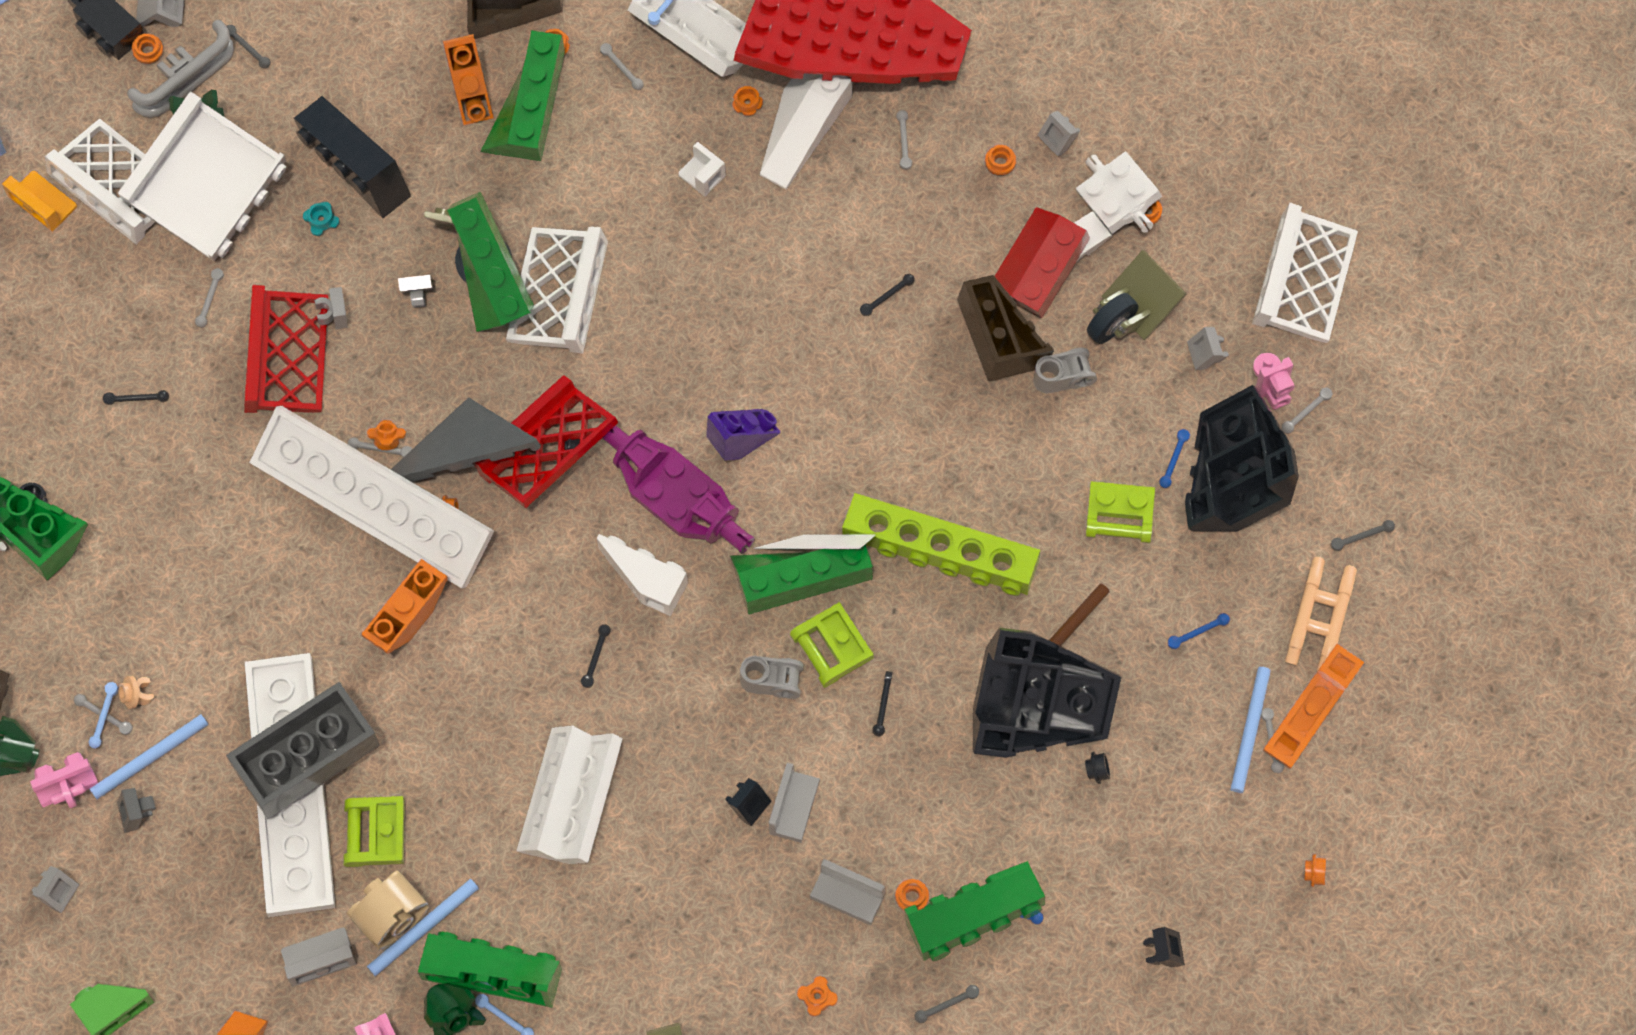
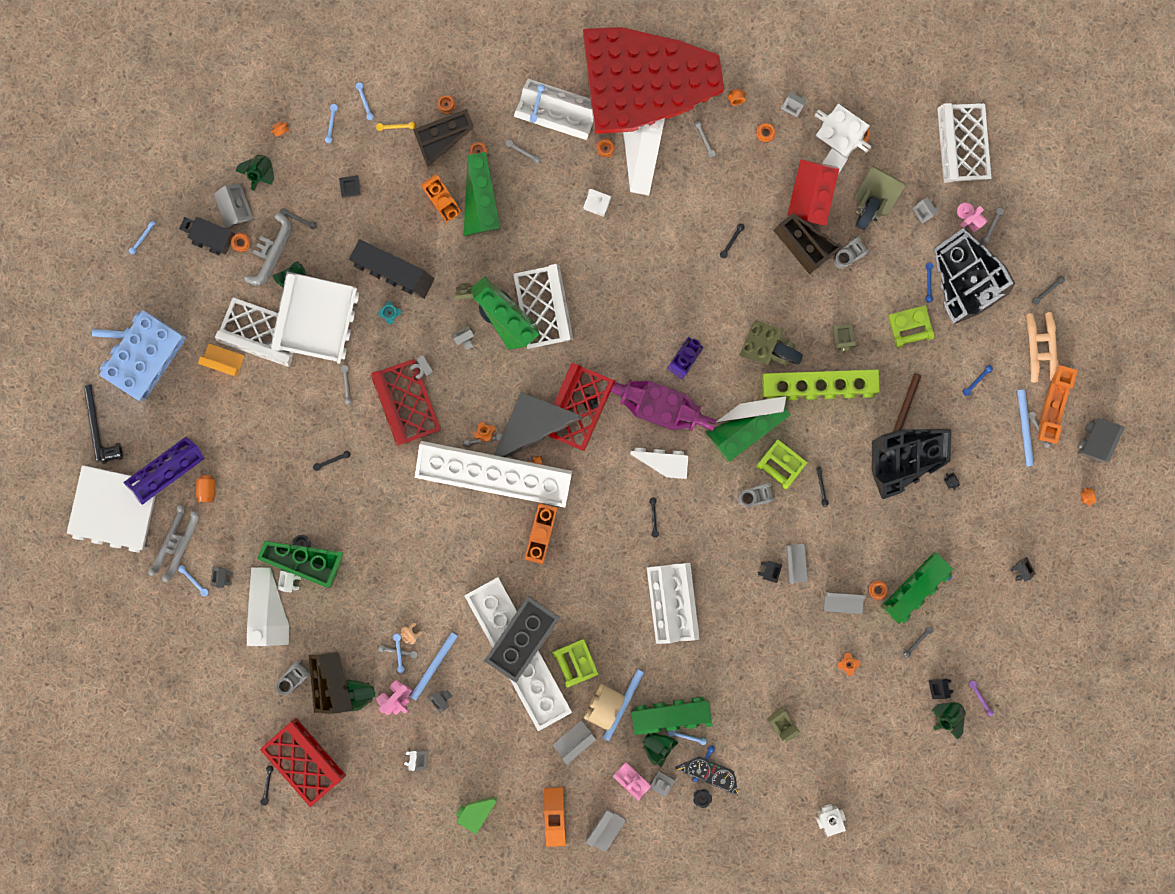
camera: 25 degrees left, 20 degrees up
(342, 24) = (350, 186): none -> black tile
(884, 456) = (763, 346): none -> olive plate
(975, 93) = (736, 94): none -> orange plate
(1006, 489) = (844, 337): none -> olive bracket
(1363, 785) = (1100, 440): none -> dark grey slope

